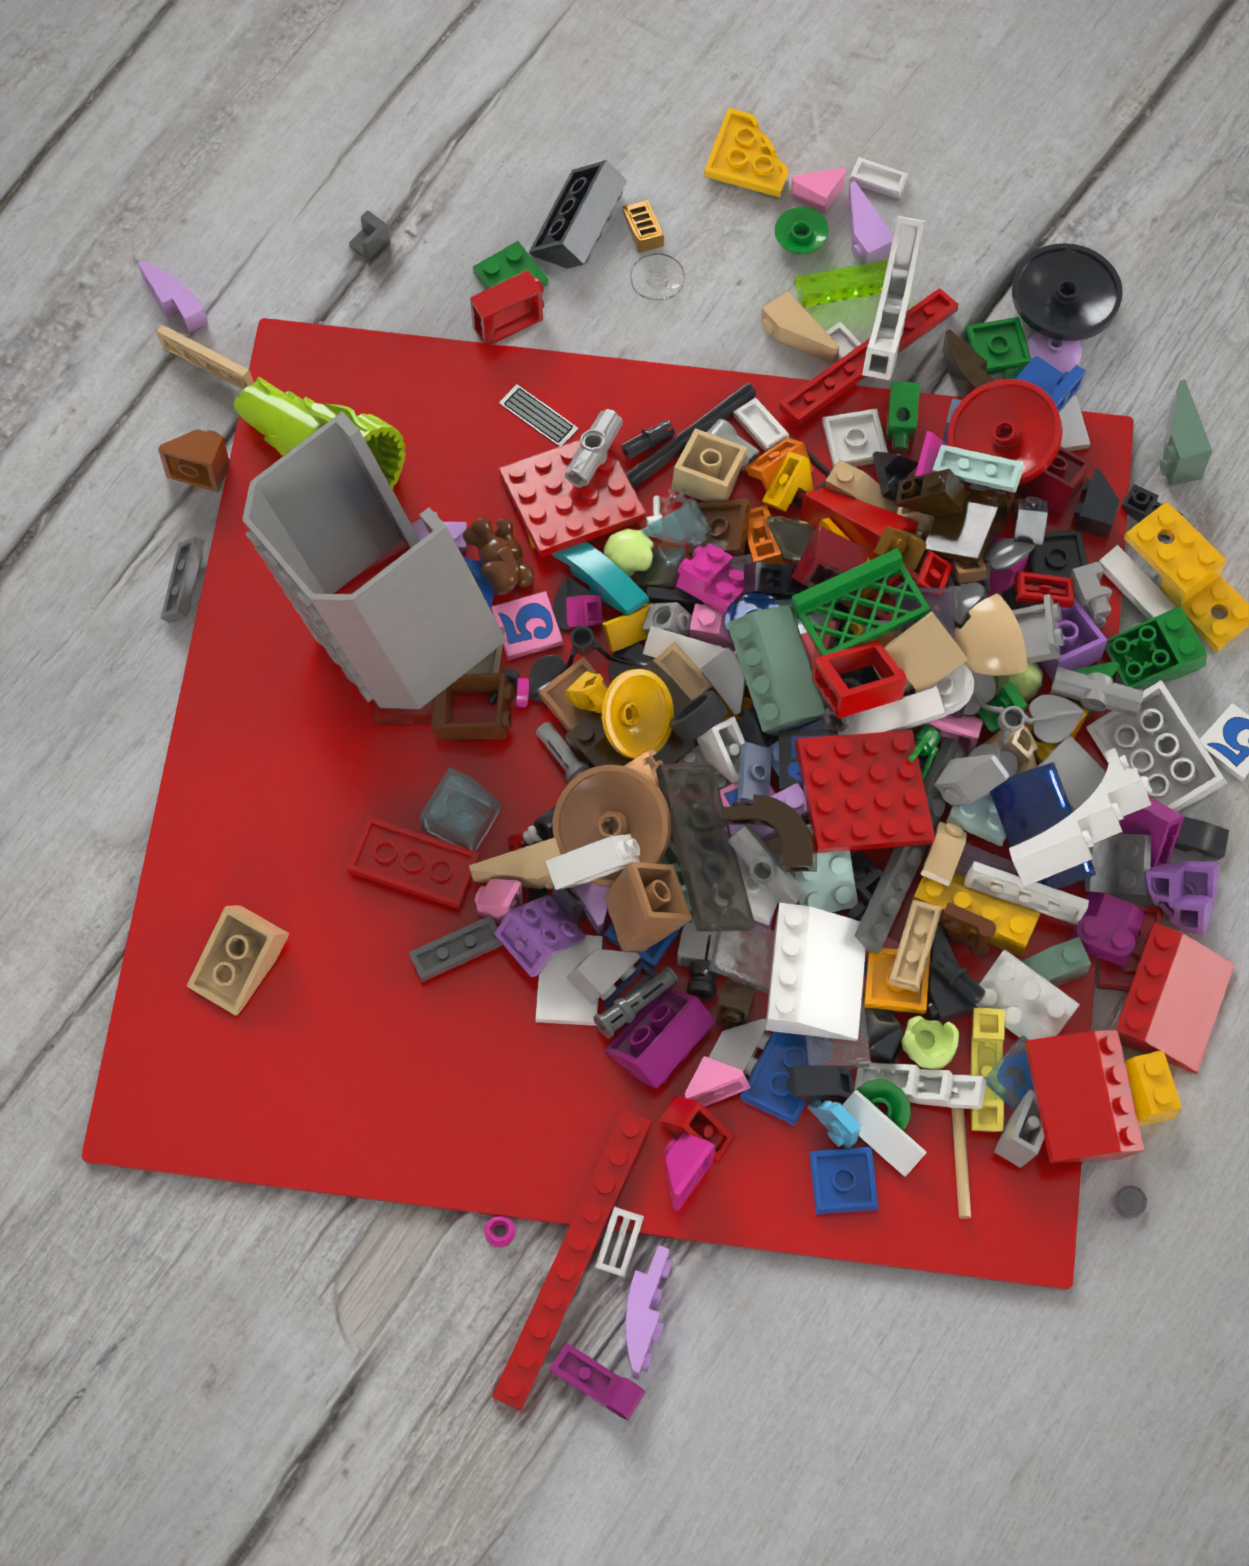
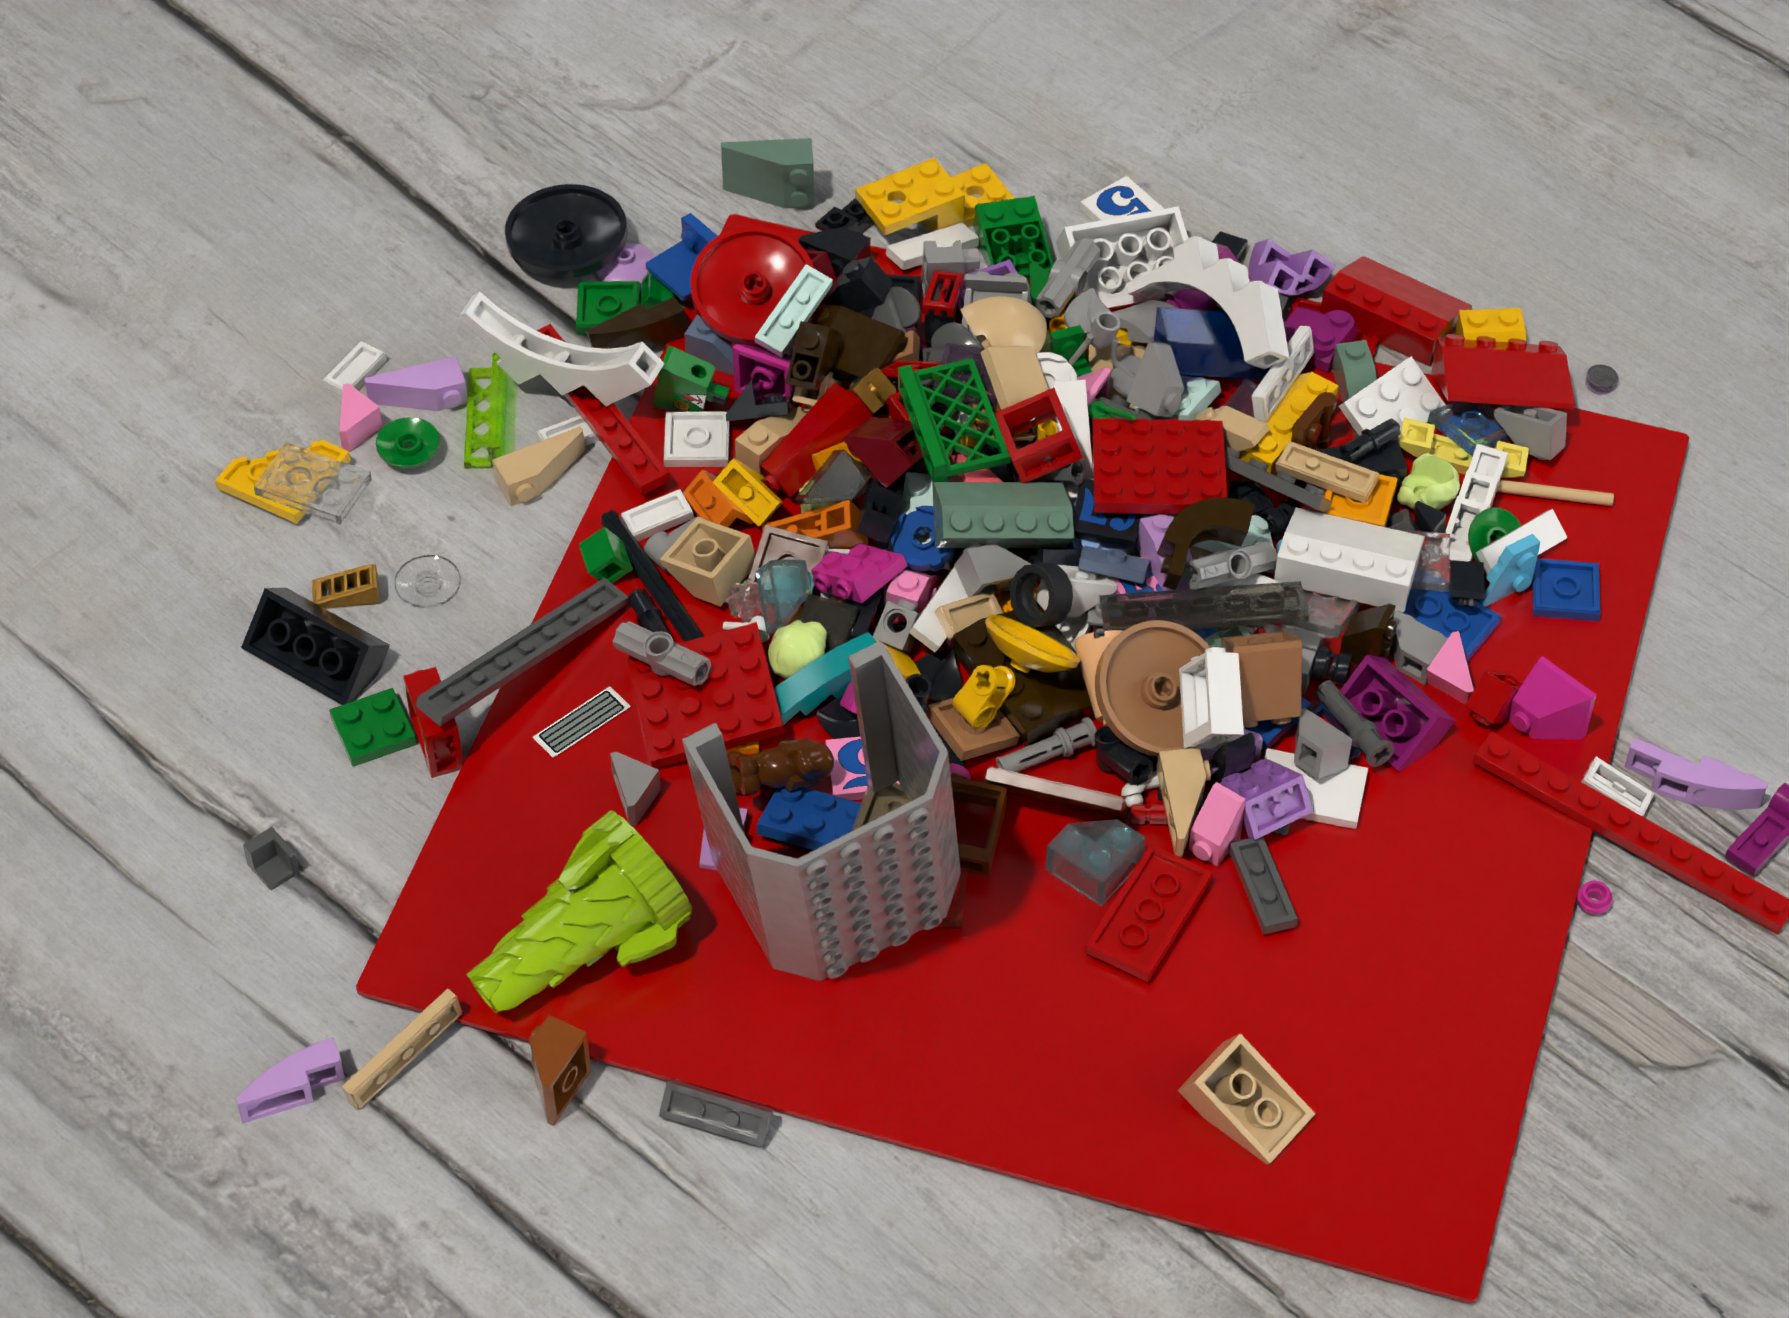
camera: 80 degrees left, 15 degrees down
(470, 460) = (636, 785): none -> light grey slope
(510, 770) = (1058, 793): none -> tile
(576, 349) = (521, 652): none -> dark grey plate
(699, 392) = (605, 556): none -> green brick
(736, 172) = (313, 483): none -> clear plate

